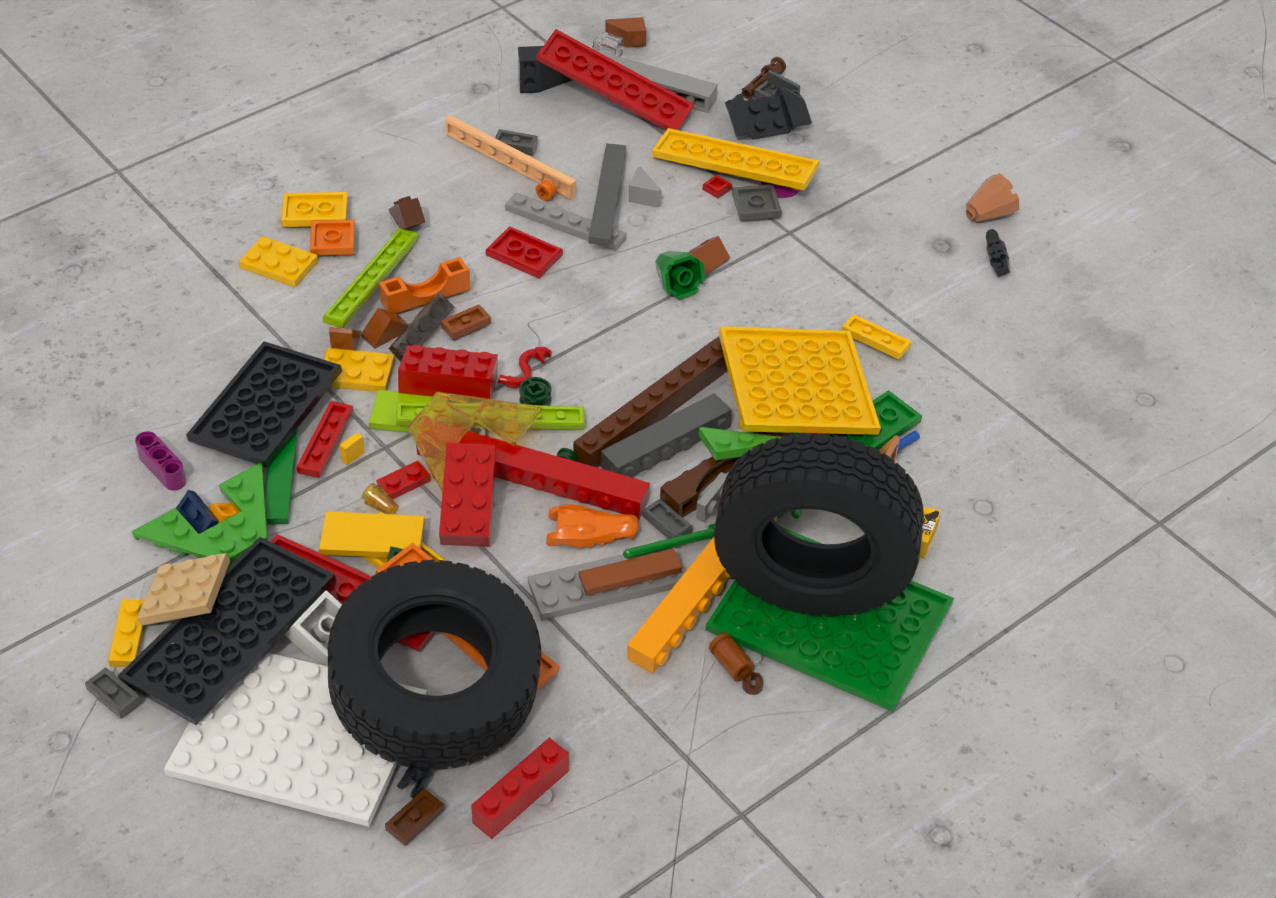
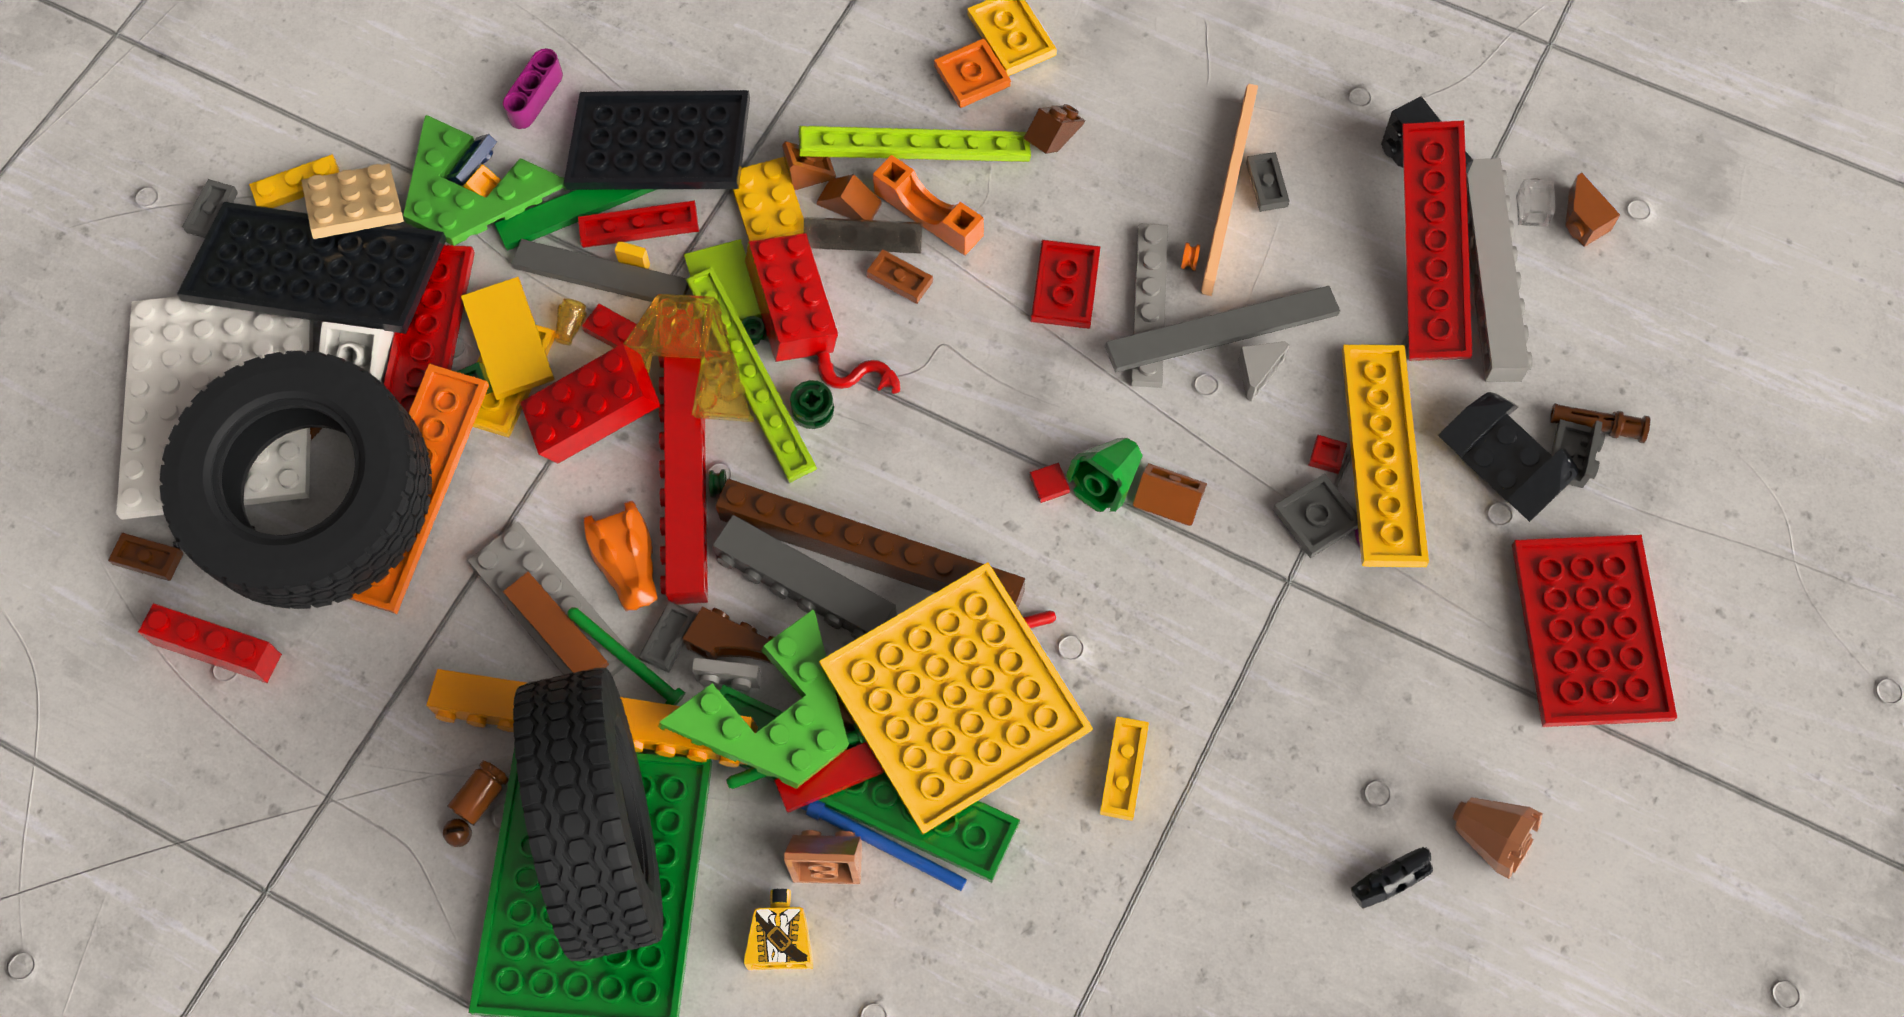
camera: 70 degrees right, 20 degrees up
(278, 261) = (906, 41): yellow plate -> none
(348, 475) = (596, 272): none -> dark grey tile
(663, 306) = (1049, 482): none -> red tile
(887, 128) = (1593, 631): none -> red plate

